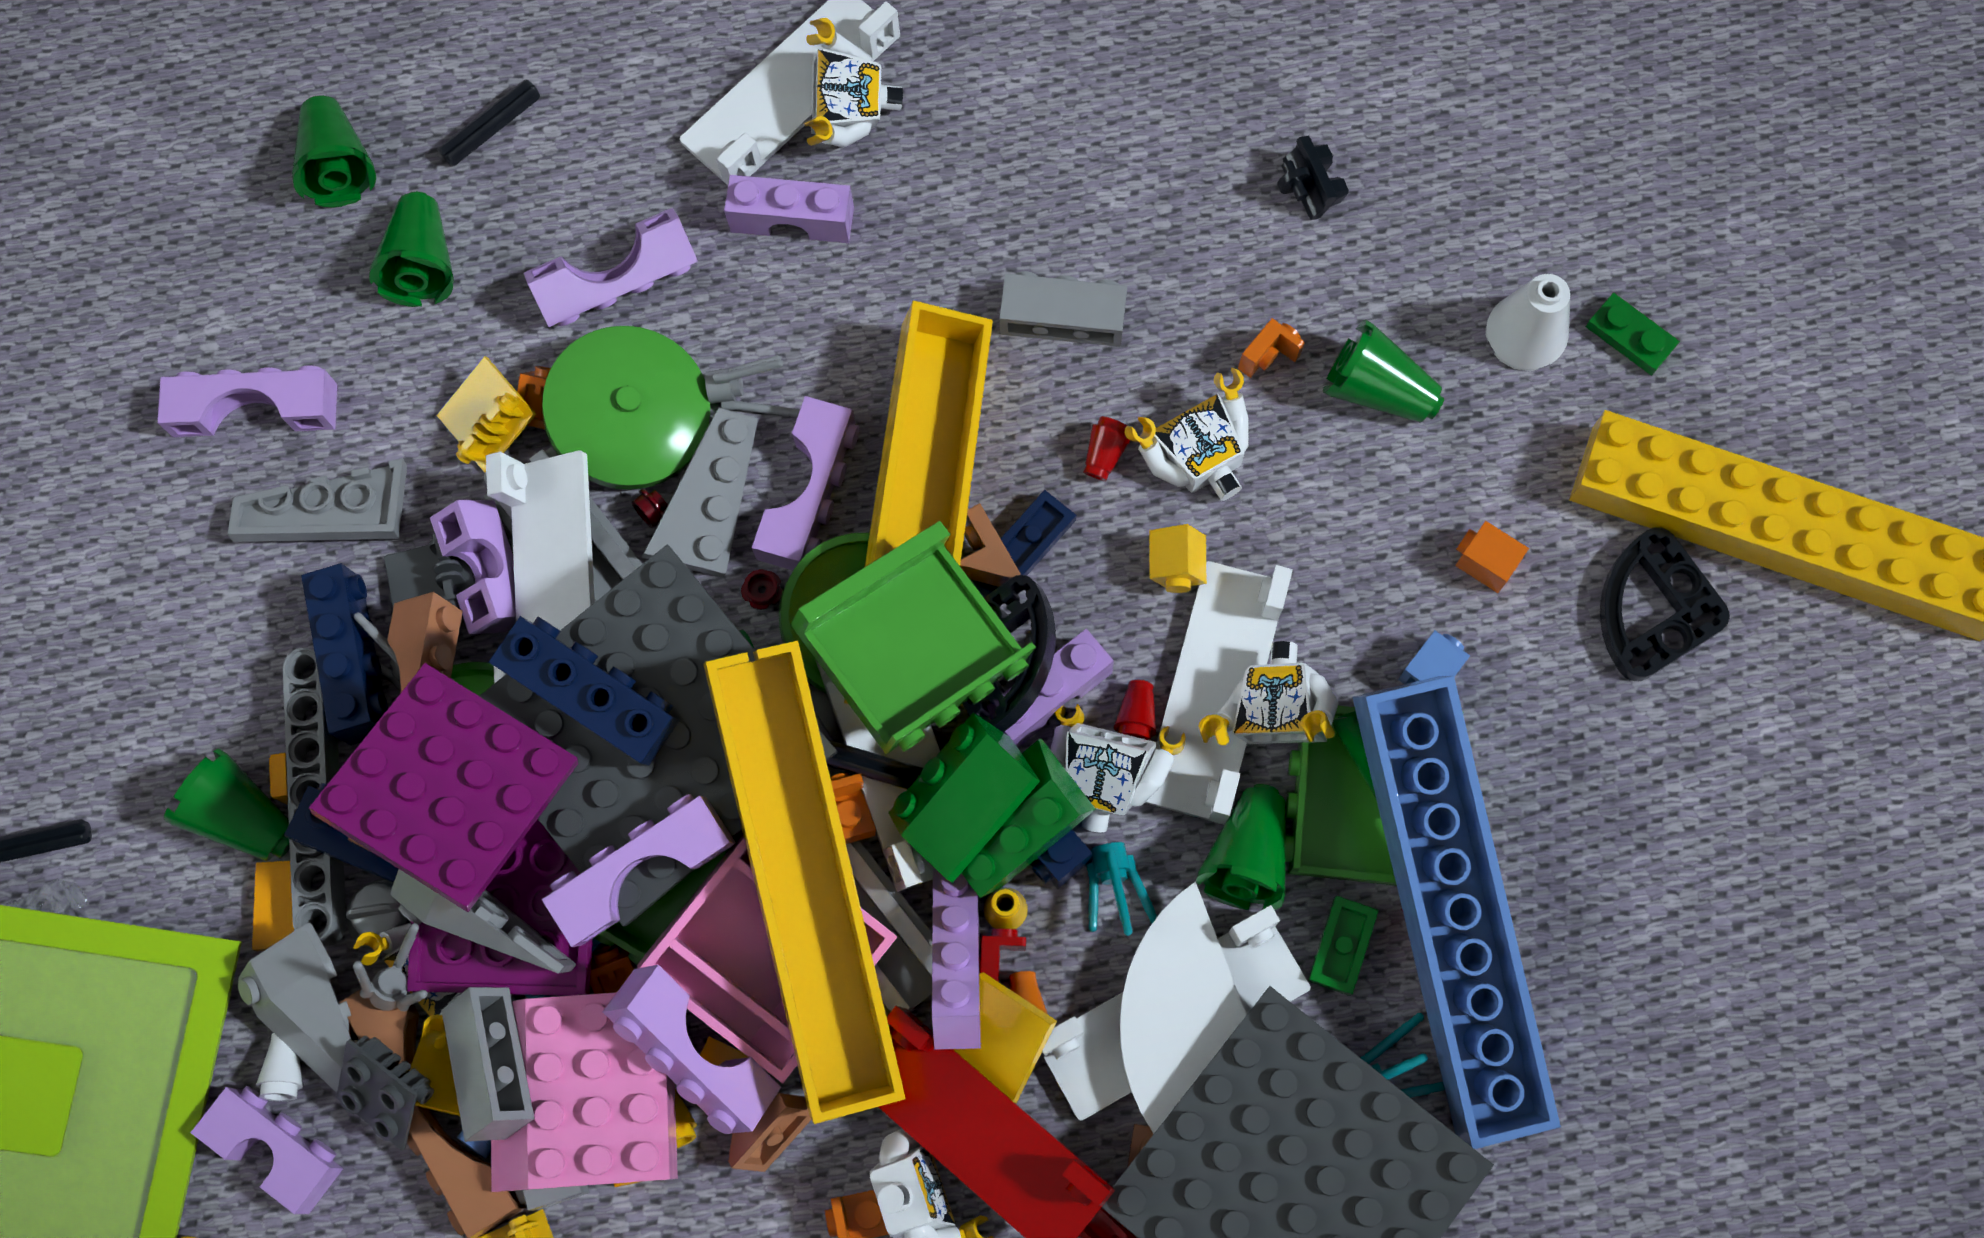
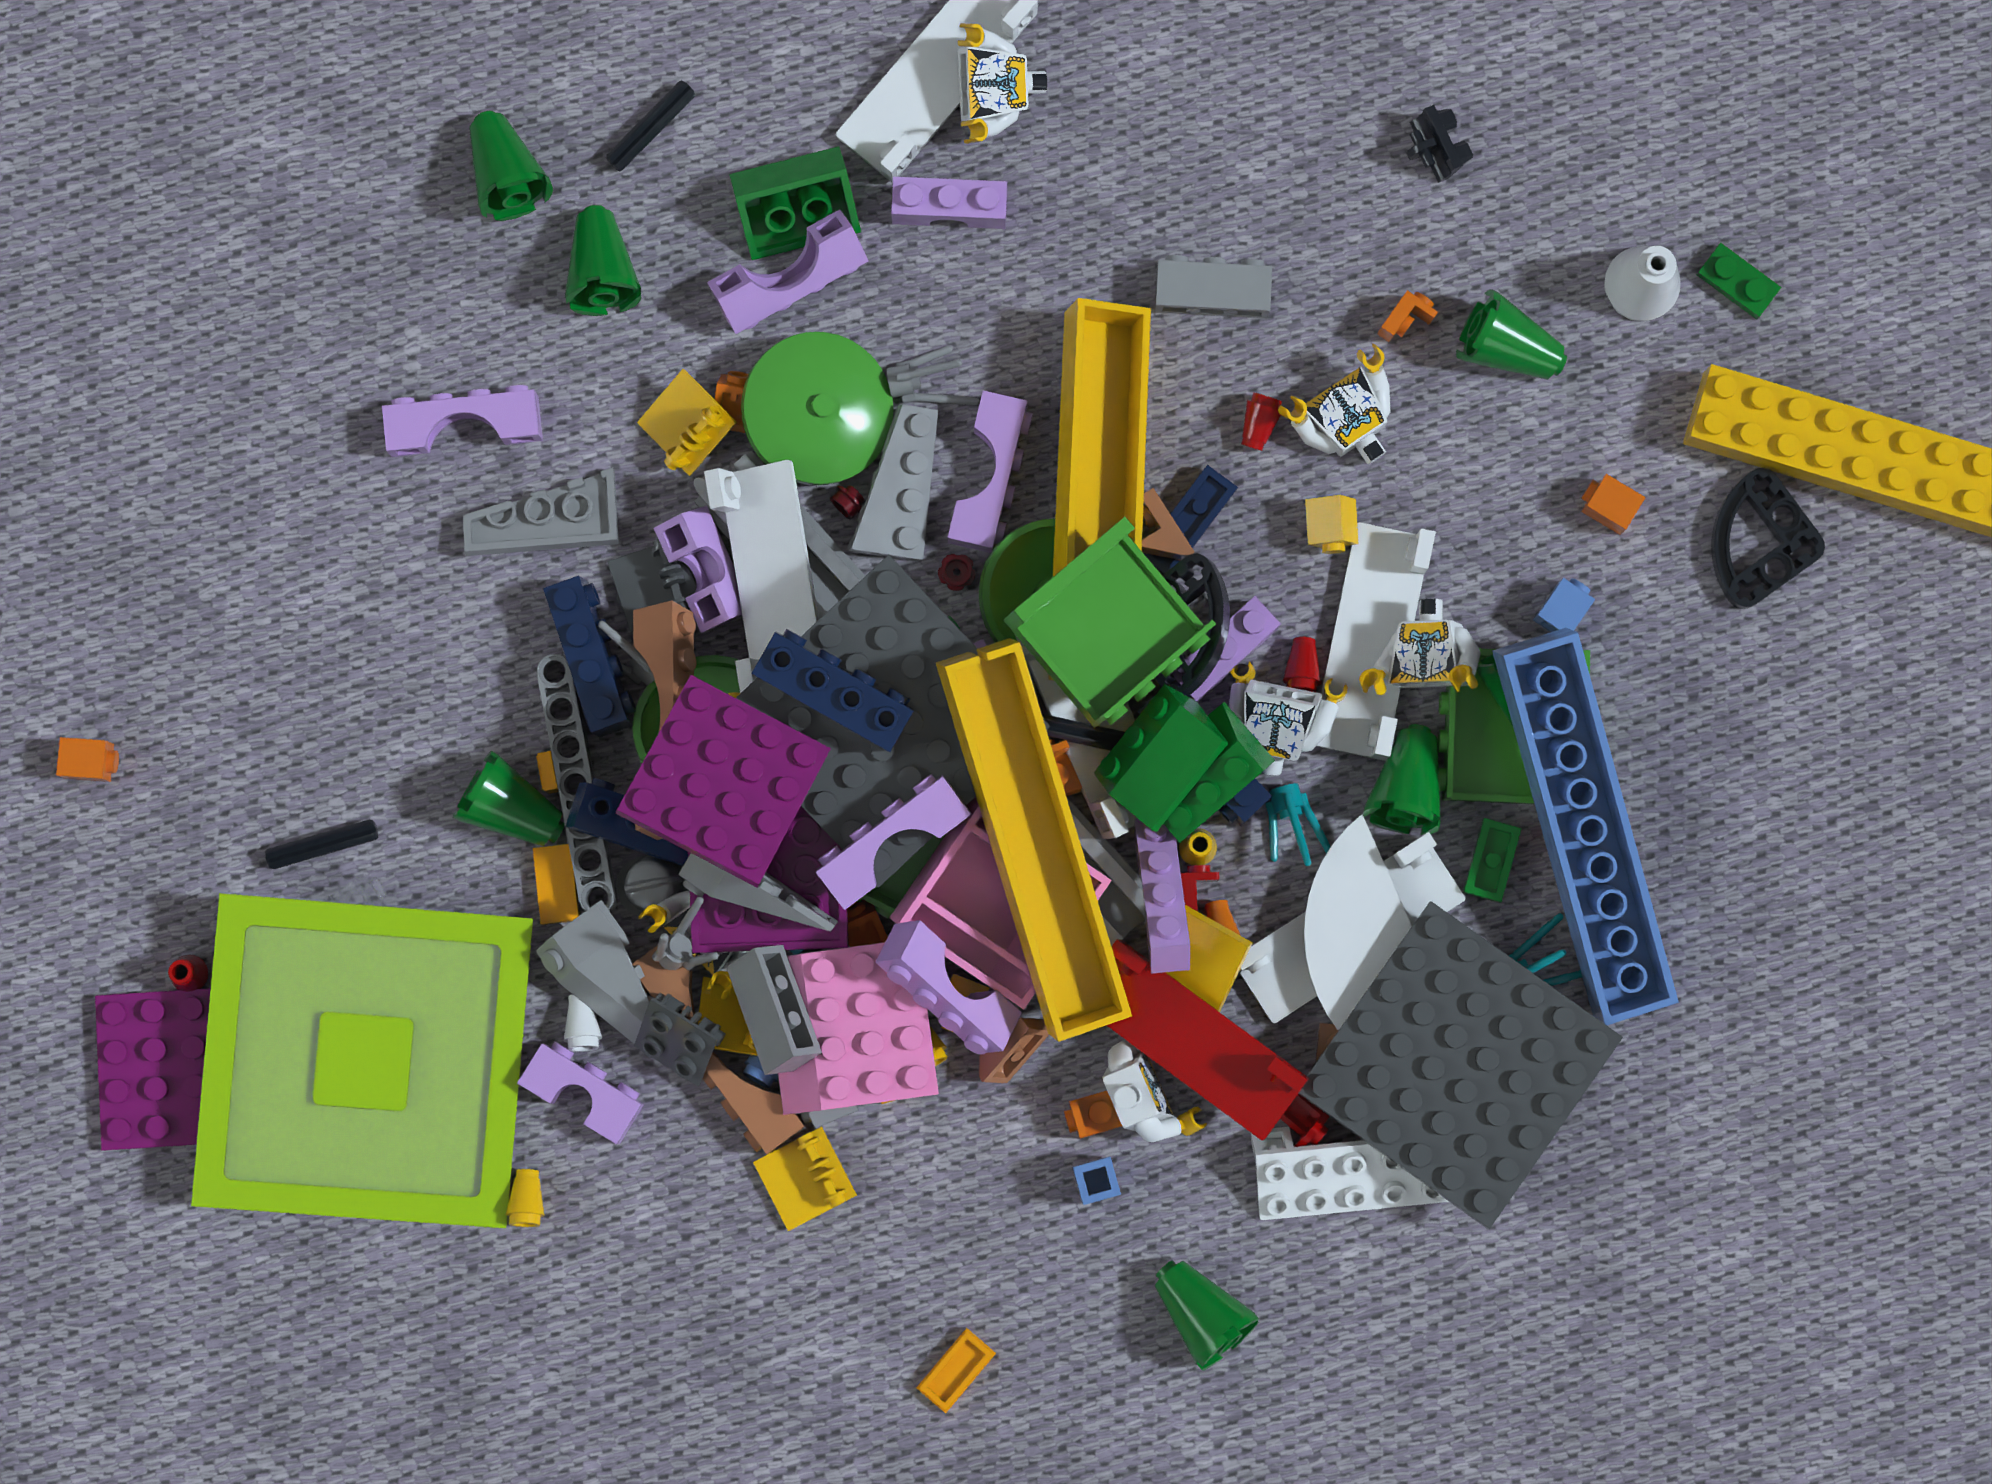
camera: 10 degrees left, 10 degrees up
(615, 194) = (789, 196): none -> green slope

